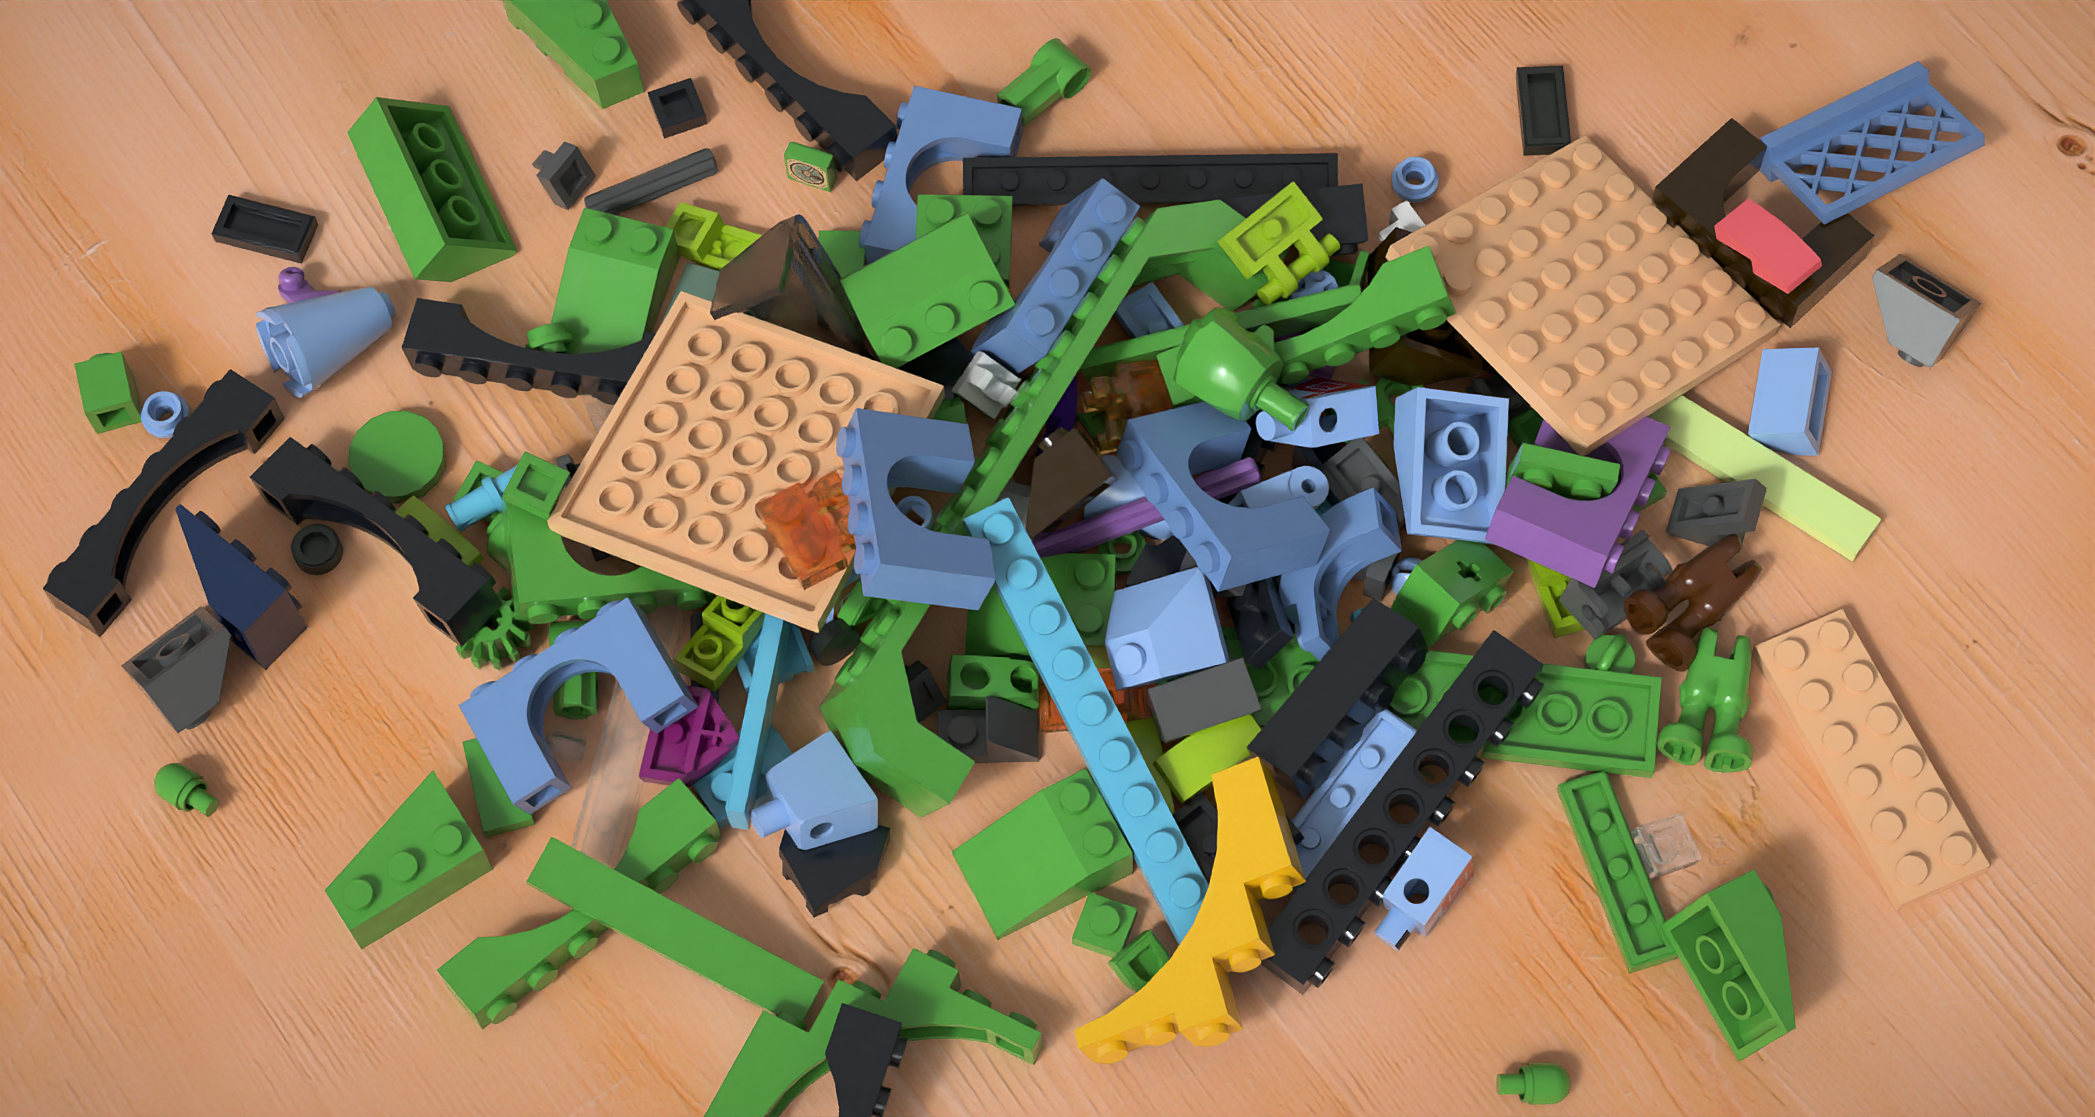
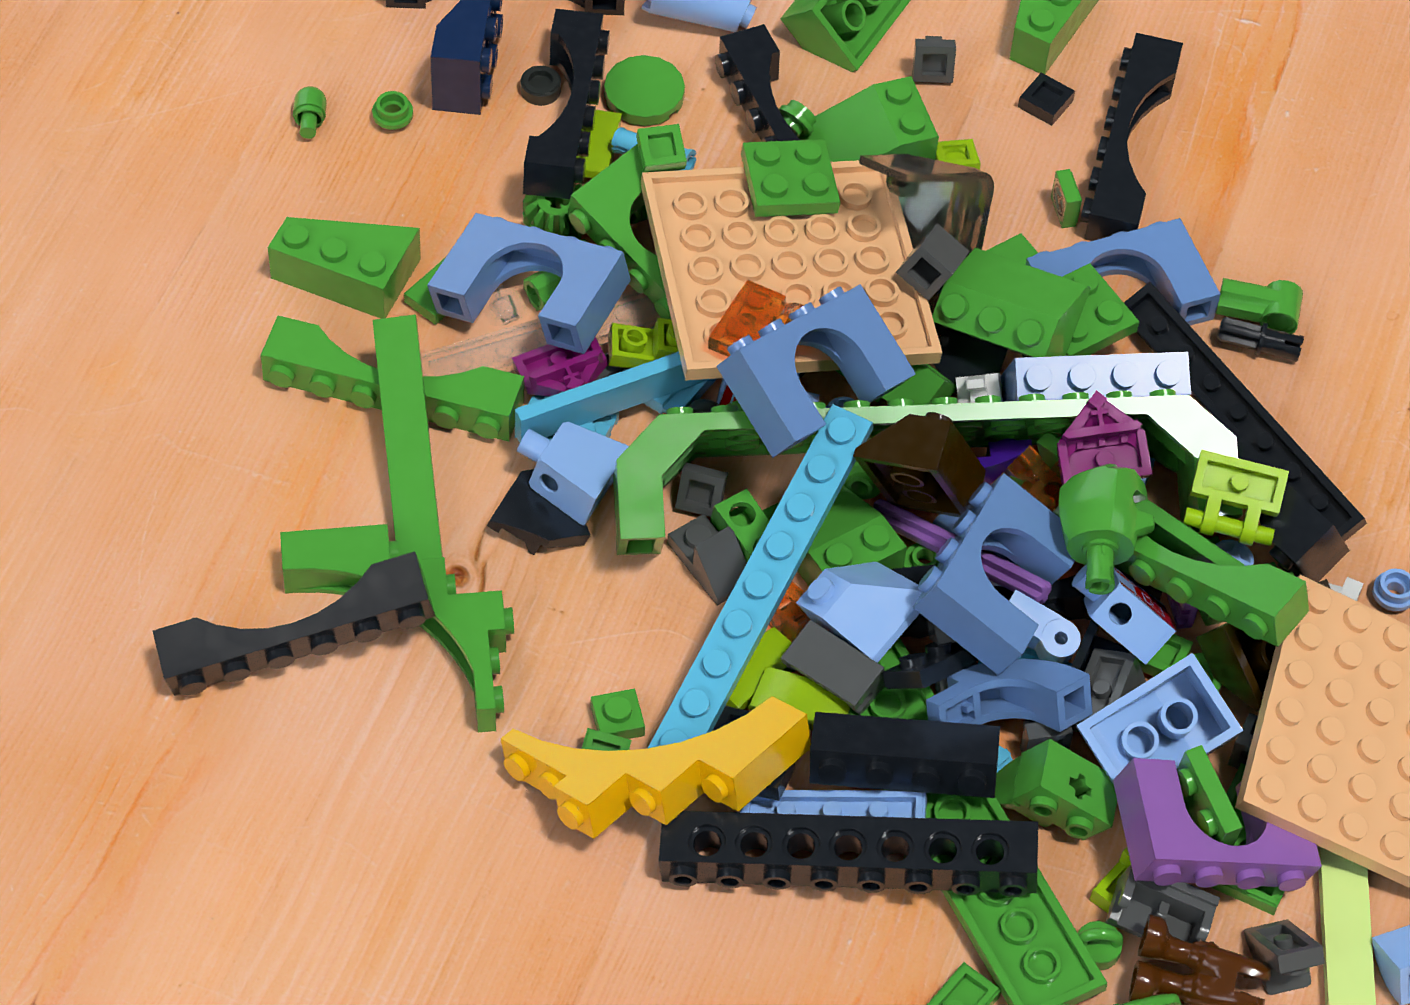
camera: 50 degrees right, 10 degrees down
(183, 669) = (384, 59): dark grey slope -> none
(238, 699) = (392, 110): none -> bright green plate
(650, 391) = (790, 178): none -> bright green plate
(653, 183) = (973, 116): dark grey axle -> none
(843, 328) = (932, 261): none -> dark grey brick
(1044, 855) = (639, 642): bright green slope -> none
(1079, 108) = (1260, 338): none -> black axle
(1151, 318) = (1102, 437): none -> magenta slope
(1434, 870) = (801, 905): light blue torso -> none

